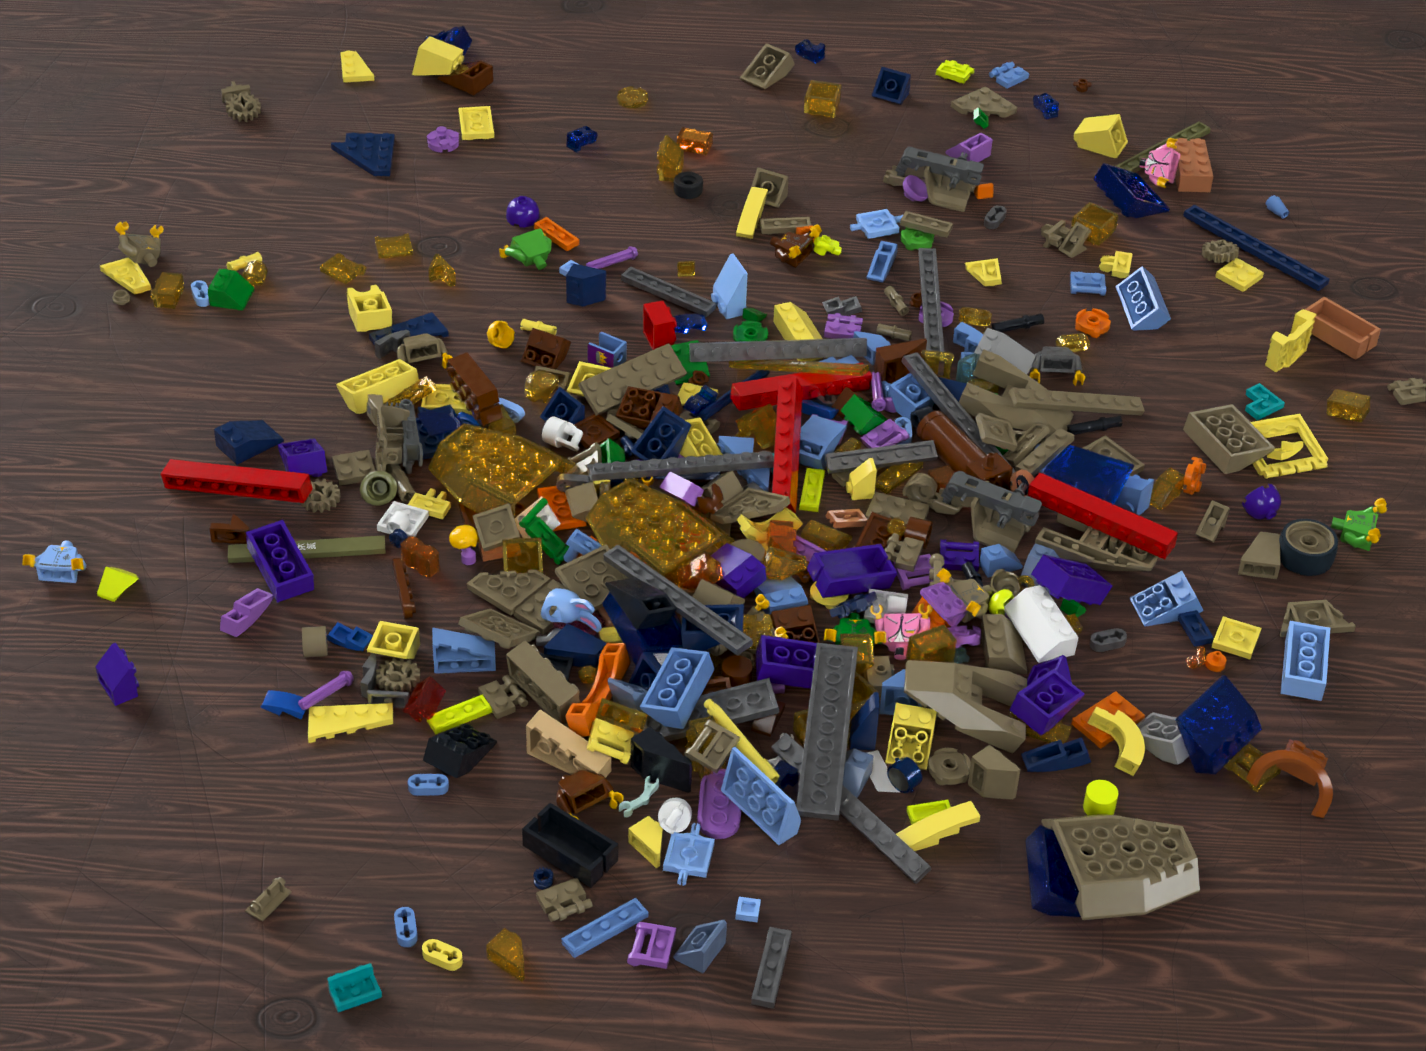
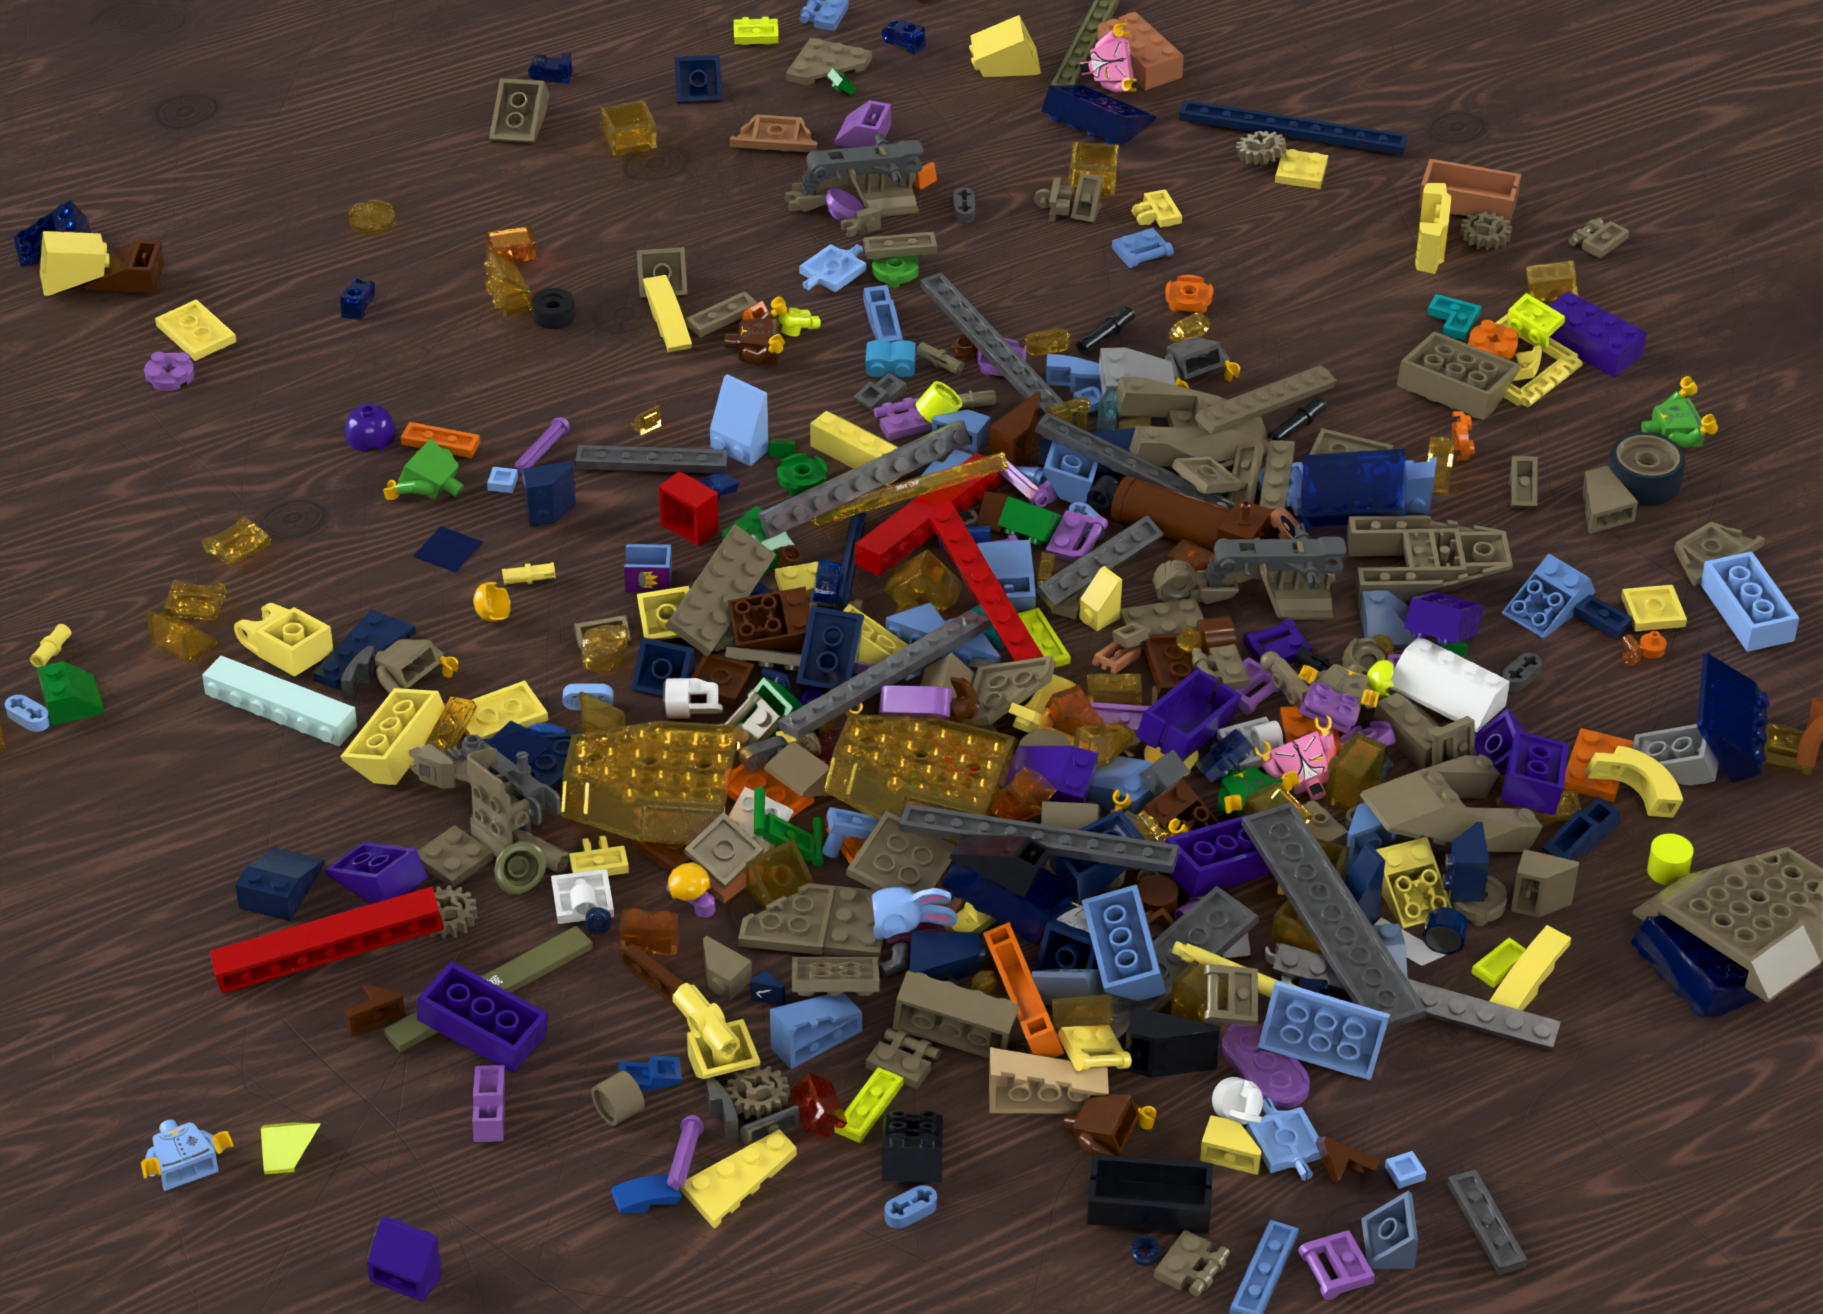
camera: 30 degrees left, 0 degrees up
(255, 273) = (83, 653): clear yellow head -> none
(316, 284) = (178, 637): none -> clear yellow slope
(335, 340) = (279, 700): none -> light aqua brick
(368, 151) = (81, 425): dark blue wing -> none
(391, 618) = (706, 1021): none -> light yellow piece
(441, 269) = (336, 547): clear yellow slope -> none
(443, 597) = (725, 969): none -> dark tan slope
(454, 616) = (768, 989): none -> dark blue slope
(474, 389) = (542, 684): reddish brown piece -> none
(508, 297) = (448, 549): none -> clear blue piece
(545, 349) = (566, 599): reddish brown slope -> none
(642, 800) = (1170, 1086): light aqua piece -> none
(707, 877) = (1337, 1155): none -> reddish brown slope
(798, 595) = (1163, 772): none -> dark grey brick
(862, 508) = (1130, 635): none -> dark tan plate
(865, 289) = (893, 357): none -> dark azure brick
(867, 322) = (938, 400): none -> neon yellow piece
(896, 475) = (1130, 575): clear yellow plate -> none
(911, 133) = (775, 133): none -> medium nougat wing
(922, 203) = (864, 222): none -> dark tan plate
(947, 738) = (1467, 866): none -> dark blue slope
(985, 271) = (1014, 279): light yellow wing -> none
(996, 558) = (1328, 633): medium blue slope -> none
(1016, 658) = (1458, 737): none -> dark tan plate
(1103, 516) = (1417, 525): red brick -> none
(1143, 301) = (1225, 245): medium blue slope -> none
(1263, 502) = (1559, 437): dark purple cylinder -> none
(1273, 419) = (1504, 338): none -> orange plate
(1276, 206) = (1277, 67): medium blue cone -> none
(1308, 422) = (1534, 320): none -> neon yellow bracket
(1332, 357) = (1486, 230): none -> dark tan gear
(1347, 448) = (1597, 335): none -> dark purple brick

